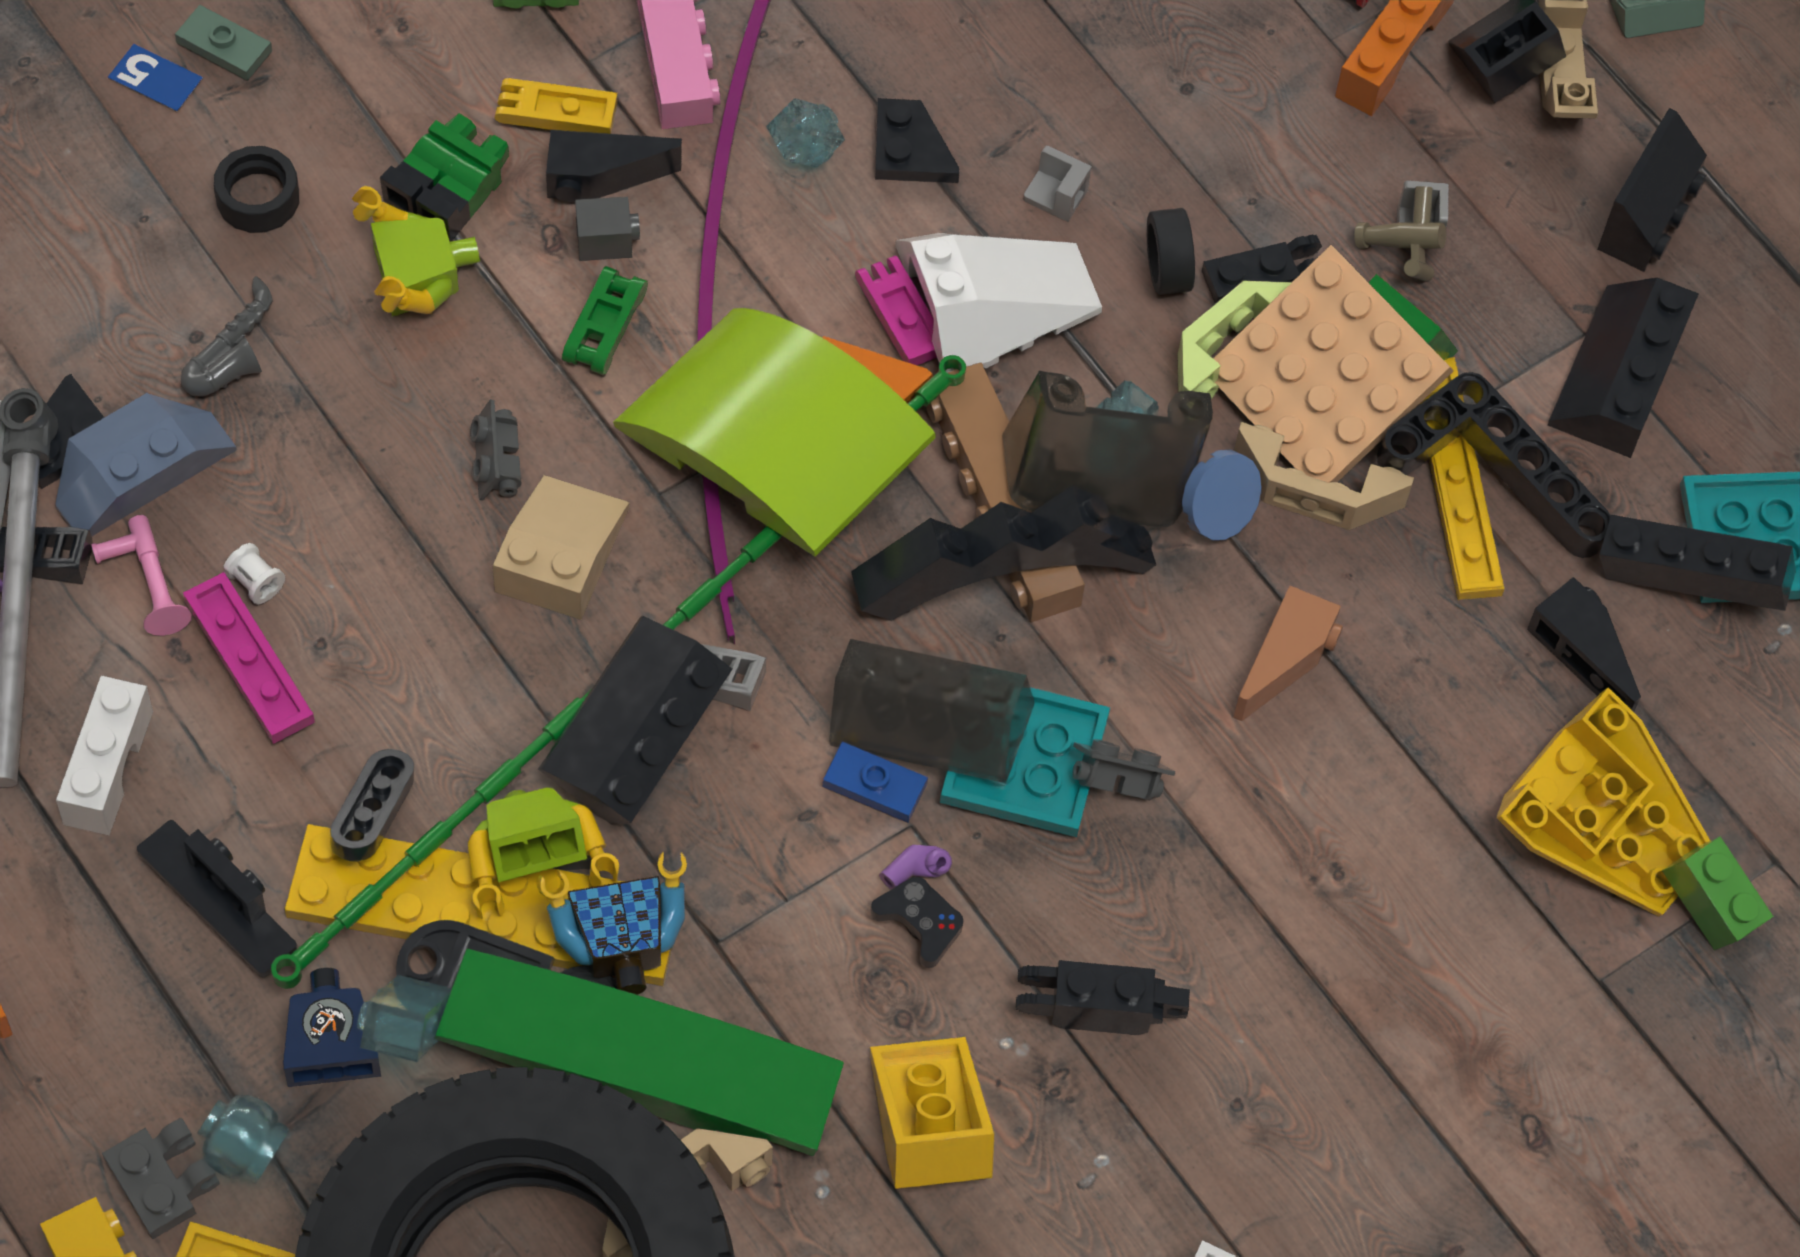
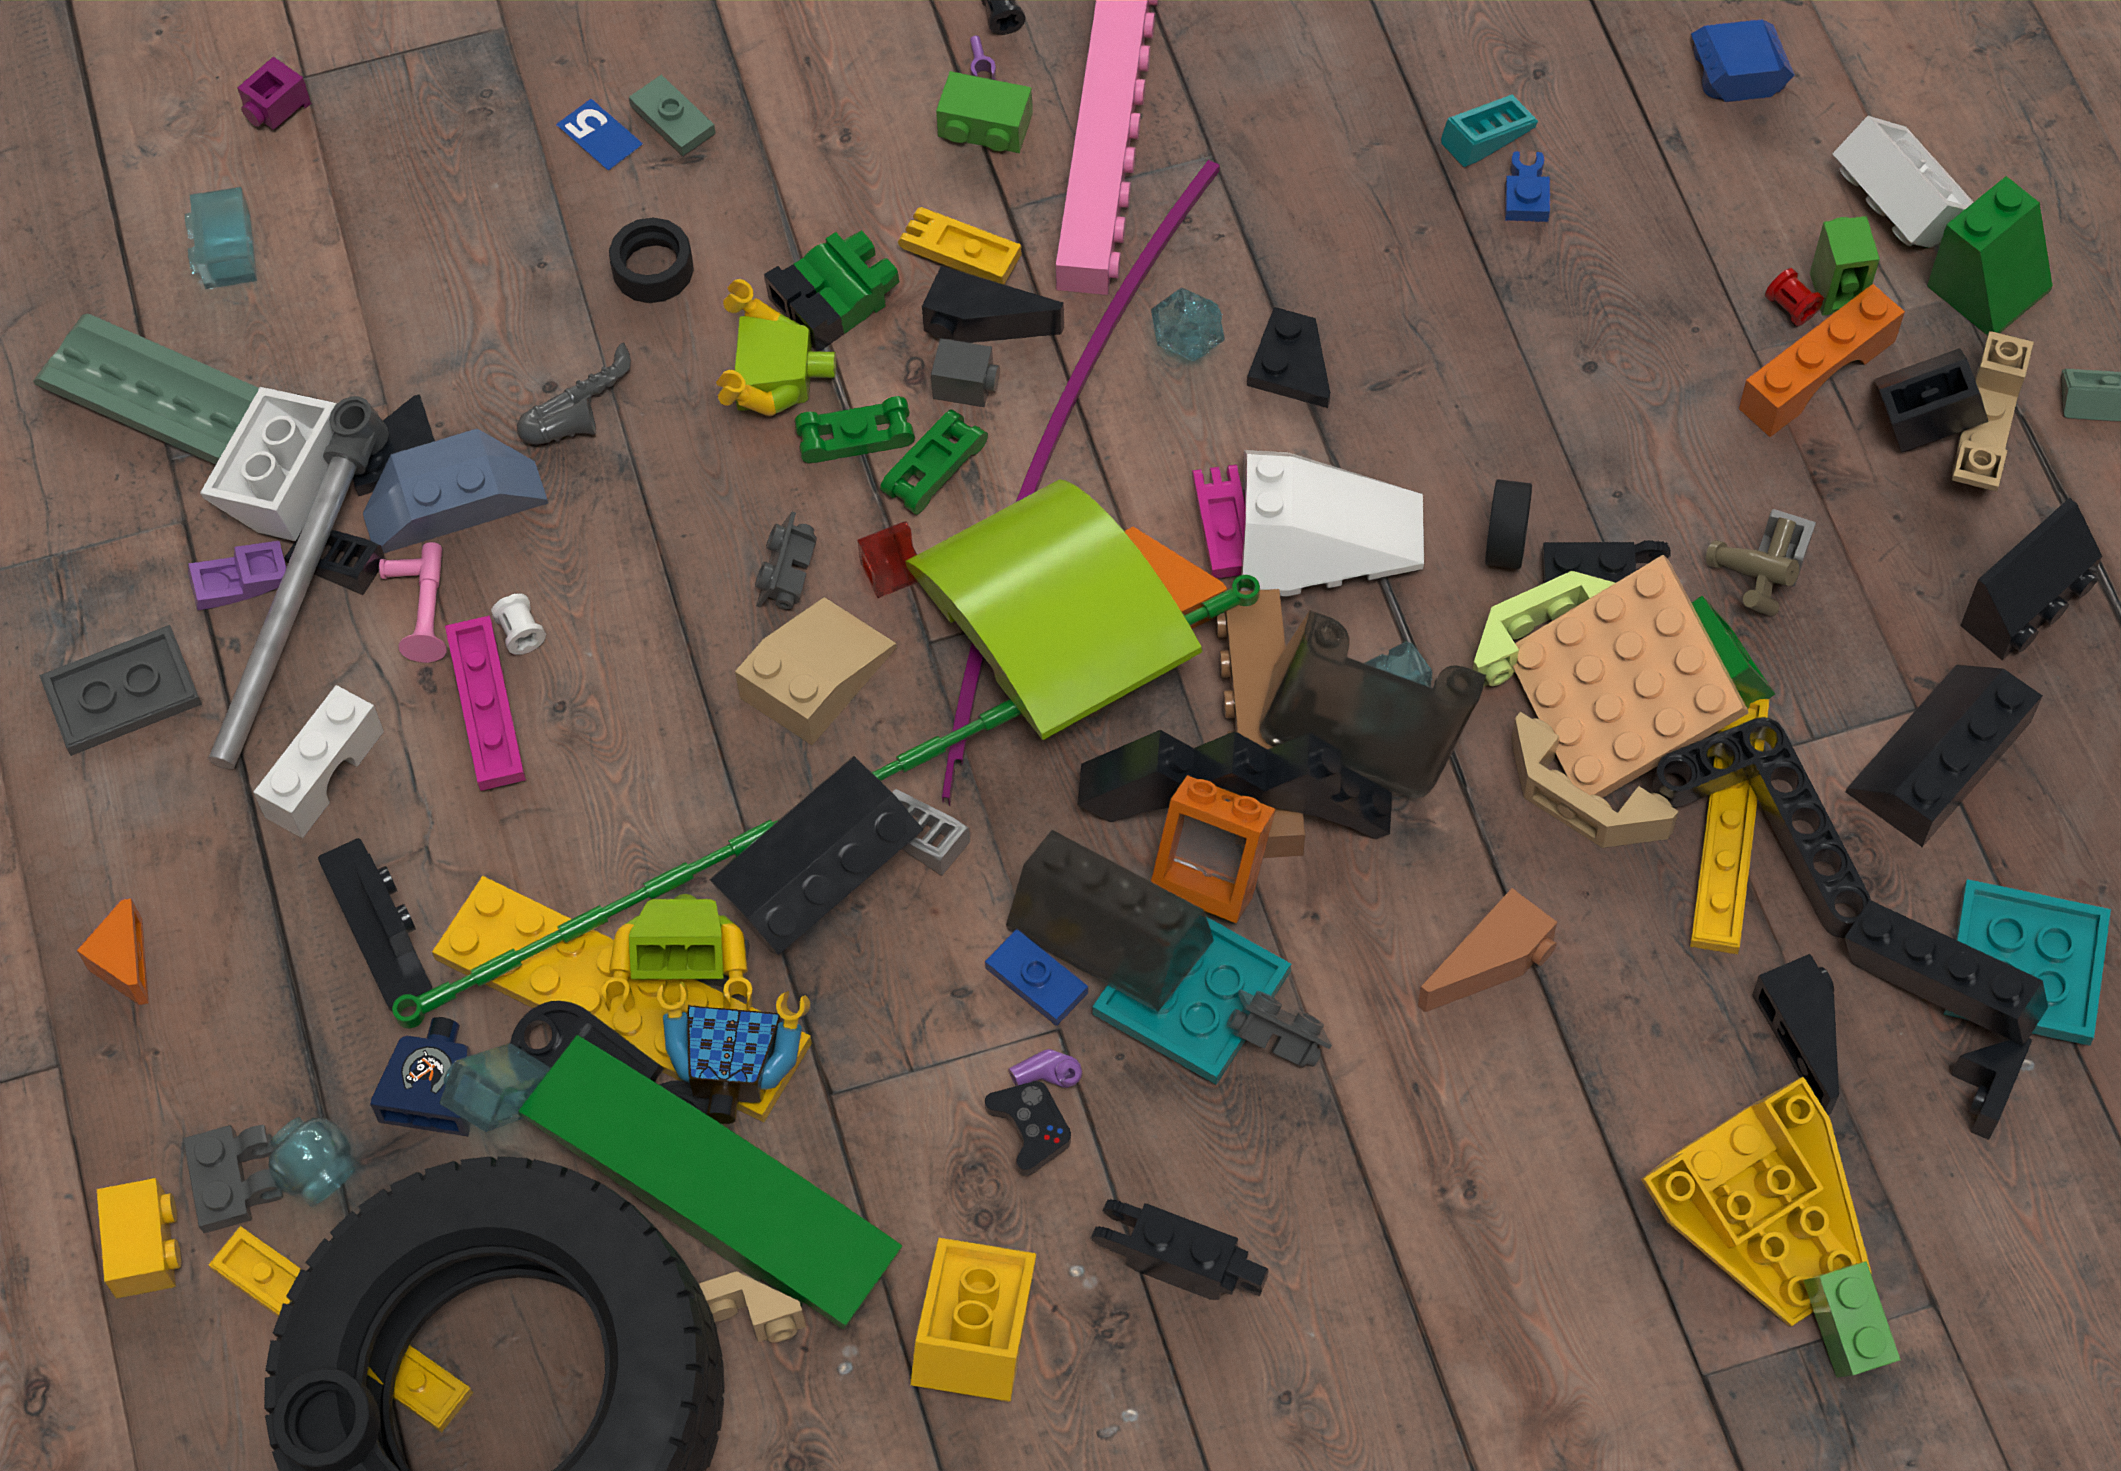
camera: 25 degrees right, 0 degrees up
(372, 805) = (522, 891): black plate -> none
(516, 309) = (854, 431): none -> green plate
(591, 424) = (884, 558): none -> clear red panel
(1008, 614) = (1212, 847): none -> orange window
(1058, 184) = (1424, 433): light grey panel -> none
(1222, 495) = (1475, 780): medium blue tile -> none
(1767, 646) = (1994, 1072): none -> black slope

